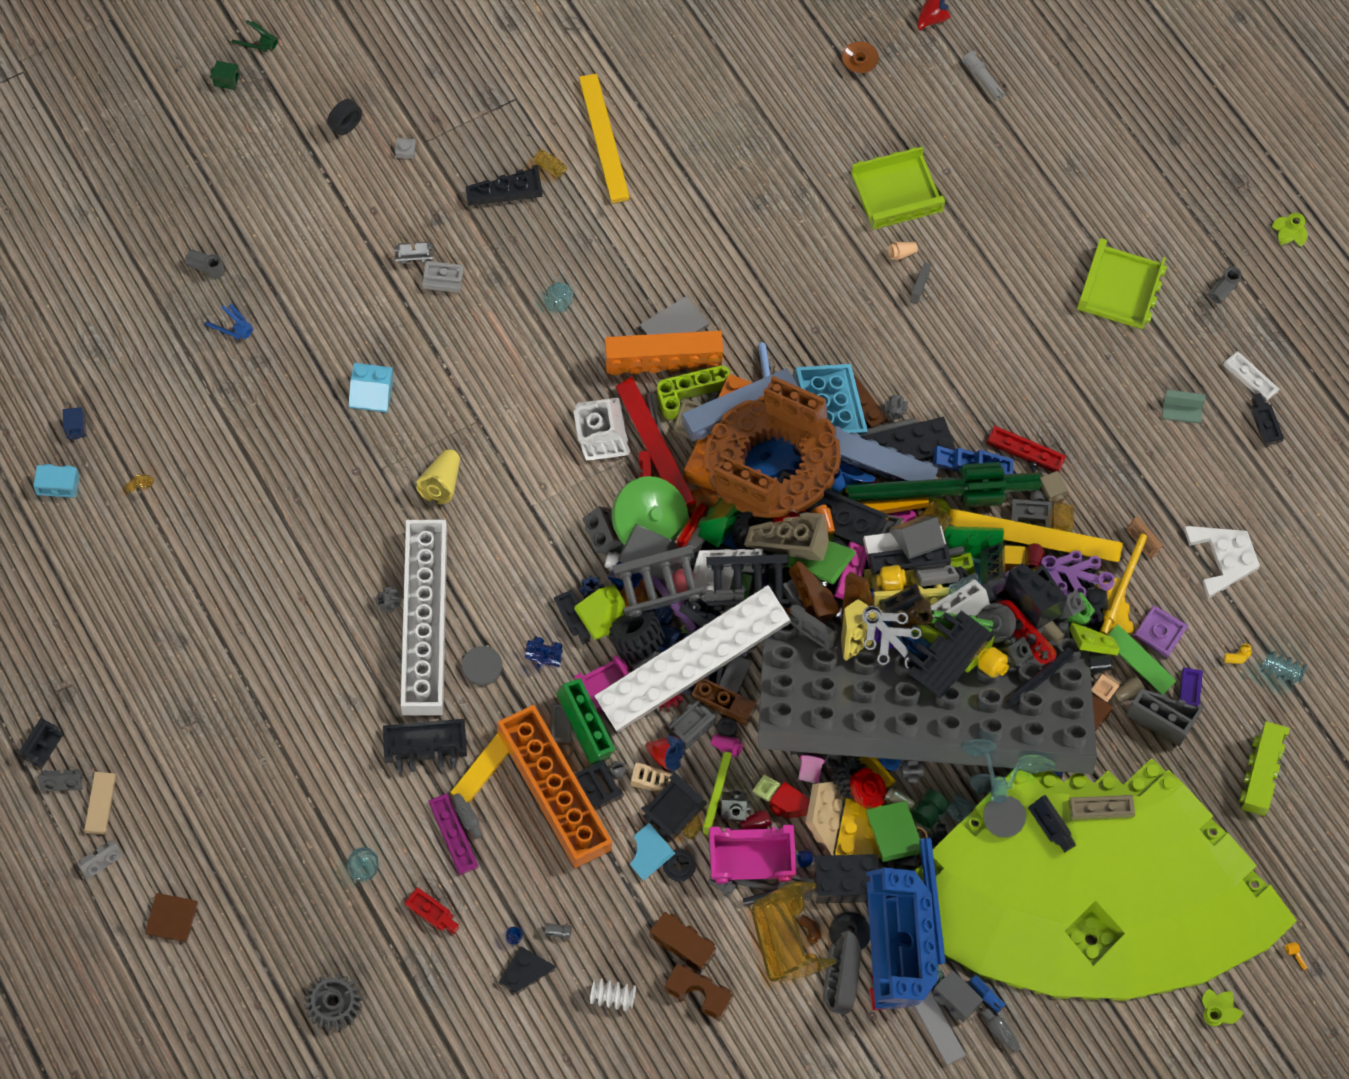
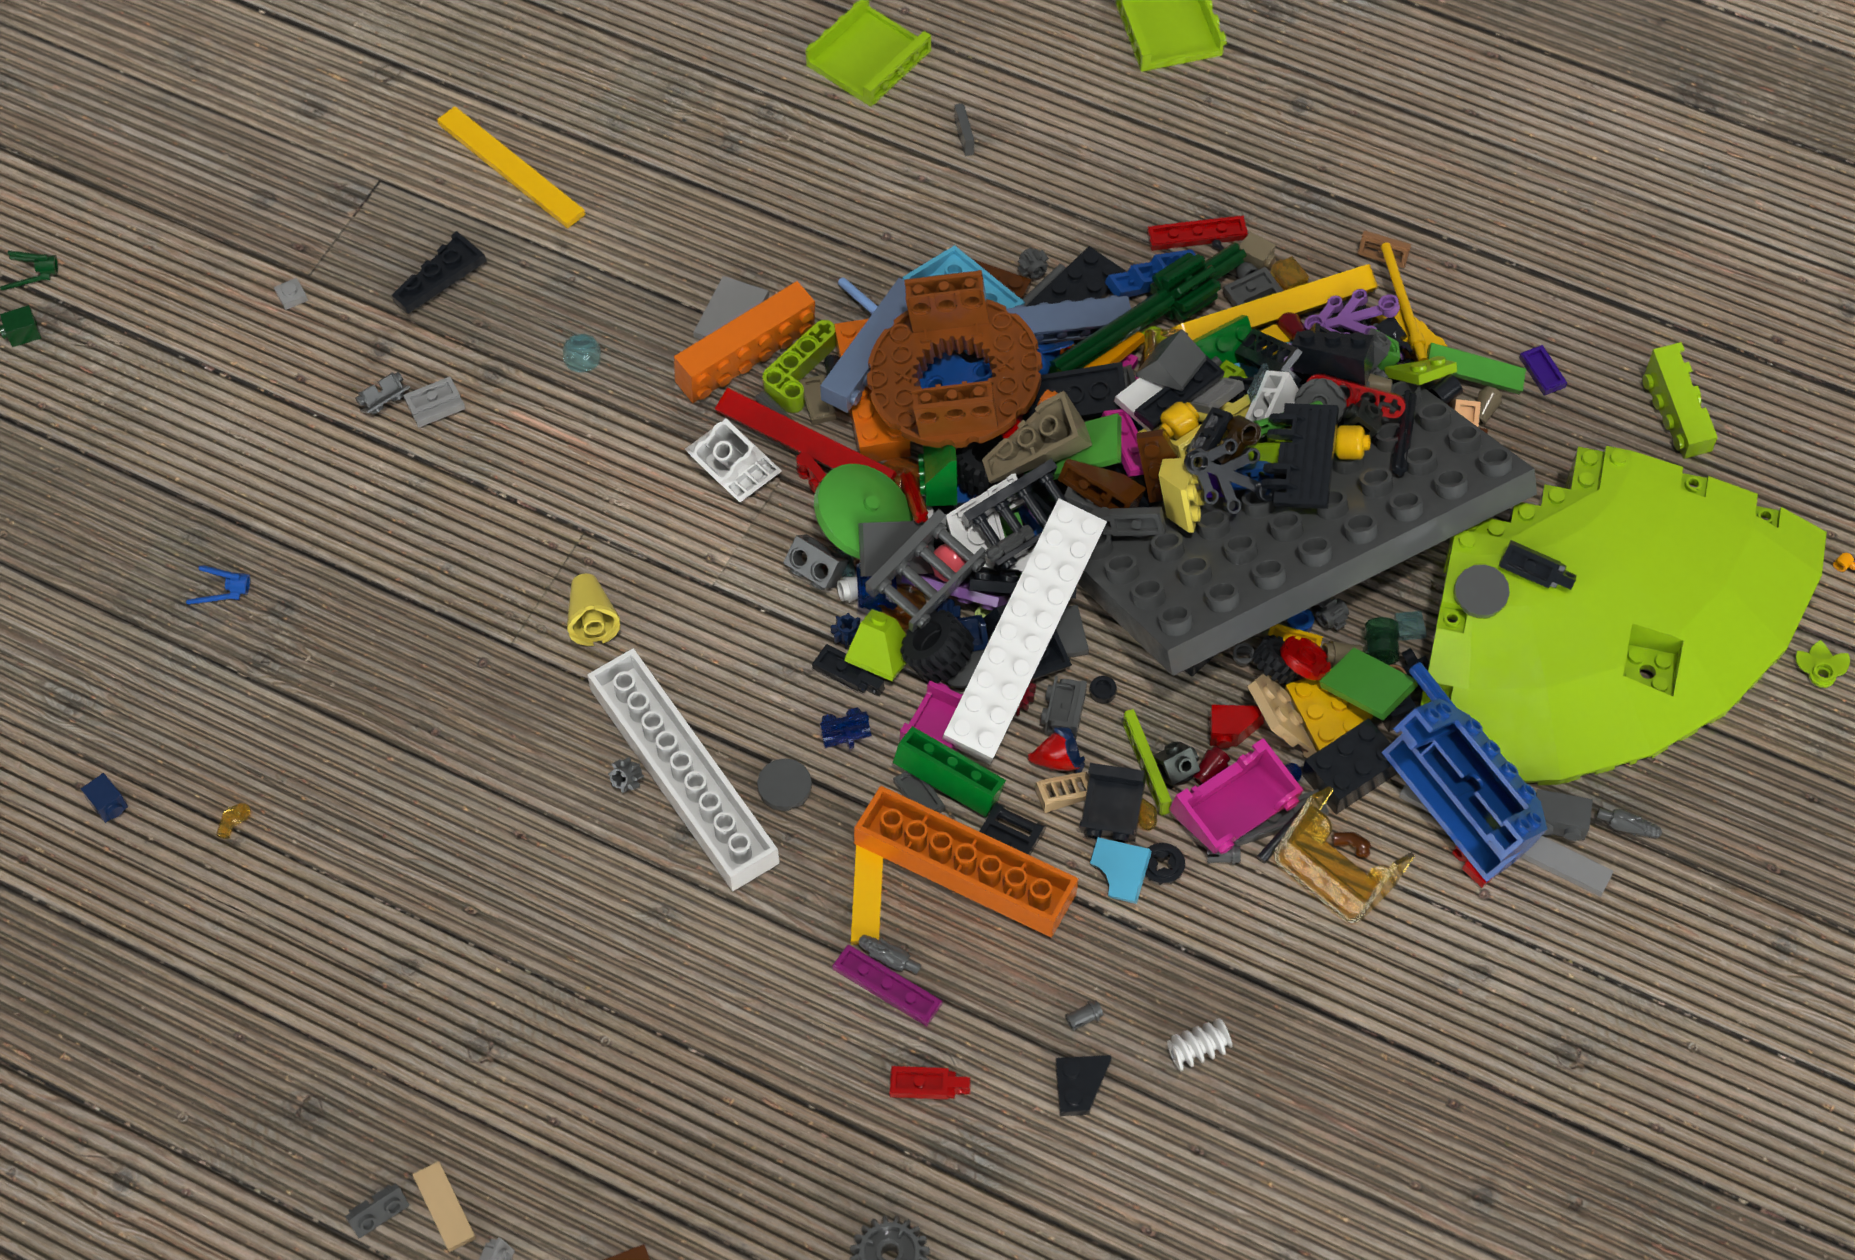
camera: 30 degrees left, 5 degrees down
(41, 743) = (322, 1182): black hinge -> none
(56, 480) = (128, 874): medium azure brick -> none
(205, 263) = (142, 536): dark grey piece -> none
(344, 117) = (197, 294): black tyre -> none
(363, 864) = (811, 1080): clear light blue hair -> none
(371, 387) = (437, 561): medium azure slope -> none
(425, 740) = (782, 899): black hinge -> none
(516, 933) = (1040, 1051): clear blue hinge -> none
(550, 163) = (470, 222): clear yellow beam -> none
(619, 772) = (1022, 806): dark grey hinge -> none
(683, 941) = (1230, 940): reddish brown brick -> none
(684, 981) = (1310, 977): reddish brown arch -> none
(725, 701) = (1085, 660): reddish brown slope -> none
(727, 744) = (1117, 705): dark pink cone -> none
(766, 788) = (1195, 725): yellowish green plate -> none
(811, 767) = (1225, 675): dark pink tile -> none
(842, 976) = (1425, 871): dark grey brick -> none
(853, 920) = (1395, 832): black dish -> none
(900, 250) = (918, 108): light nougat cone -> none
(986, 993) = (1587, 792): blue axle -> none
(998, 785) = (1455, 560): clear light blue plant -> none
(1101, 807) = (1572, 521): dark tan tile -> none
(1160, 631) = (1470, 331): medium lavender tile -> none
(1164, 716) = (1543, 409): dark grey wedge -> none
(1183, 406) = (1321, 104): sand green panel -> none
(1232, 554) = (1479, 217): white wing -> none
(1240, 656) = (1566, 312): yellow arm -> none
(1251, 376) = (1364, 41): white tile -> none
(1266, 421) = (1413, 73): black hinge -> none
(1284, 668) = (1620, 293): clear light blue piece -> none

